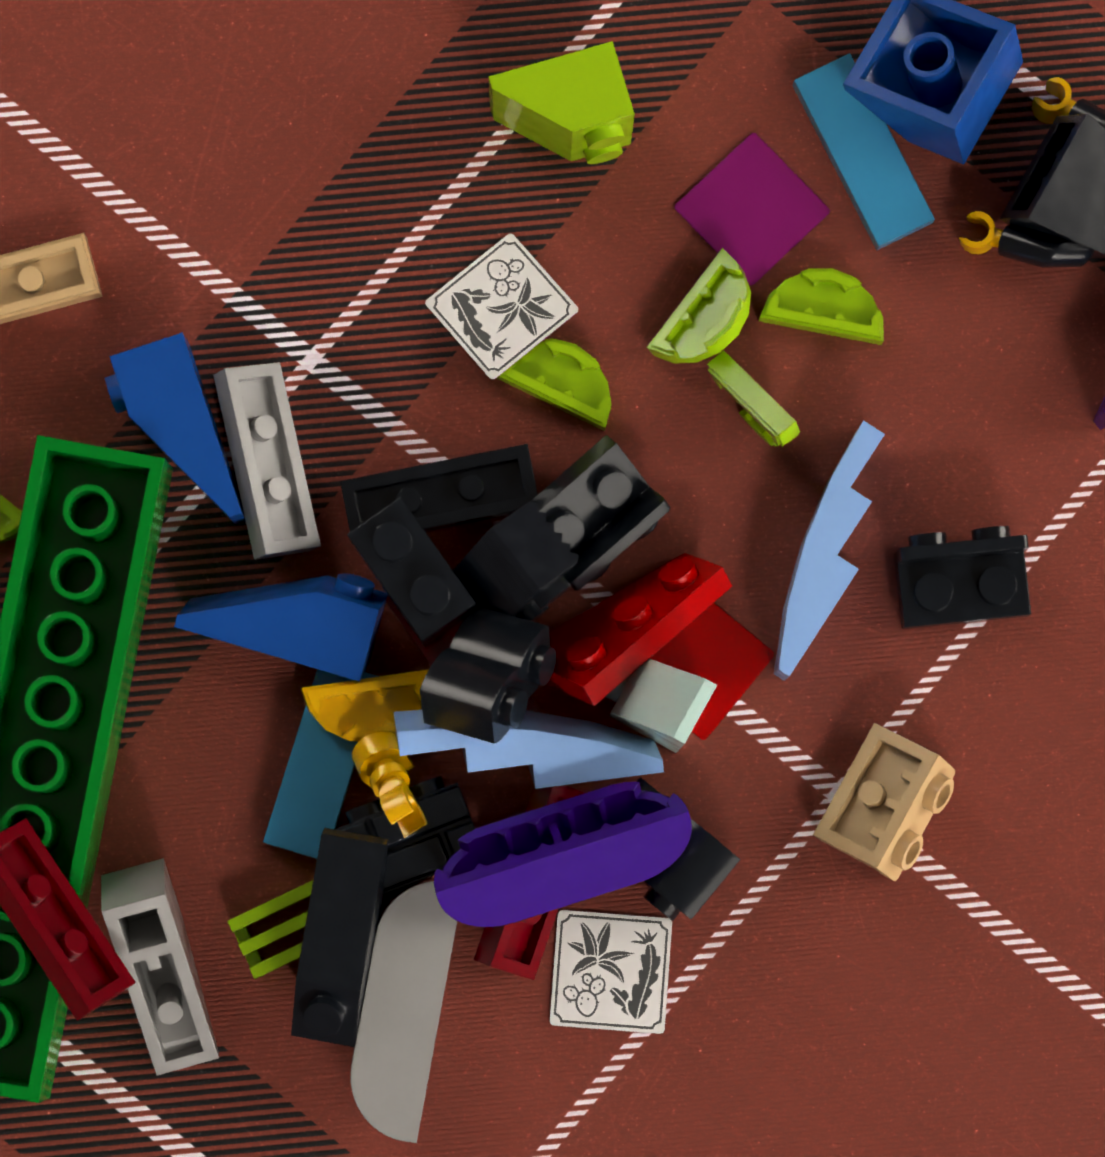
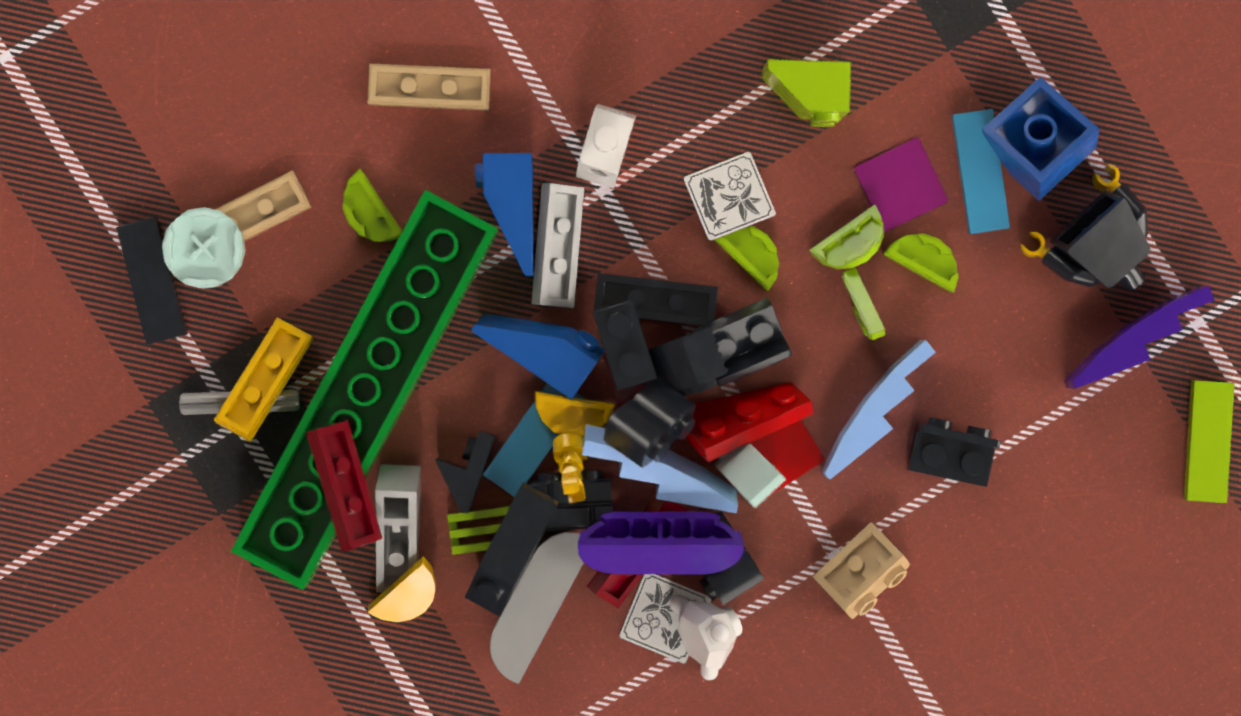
camera: 25 degrees right, 5 degrees up
(205, 1064) = (407, 595): none -> yellow tile
(240, 859) = (465, 480): none -> black slope
(290, 290) = (605, 145): none -> white torso
(680, 973) = (706, 632): none -> white rock

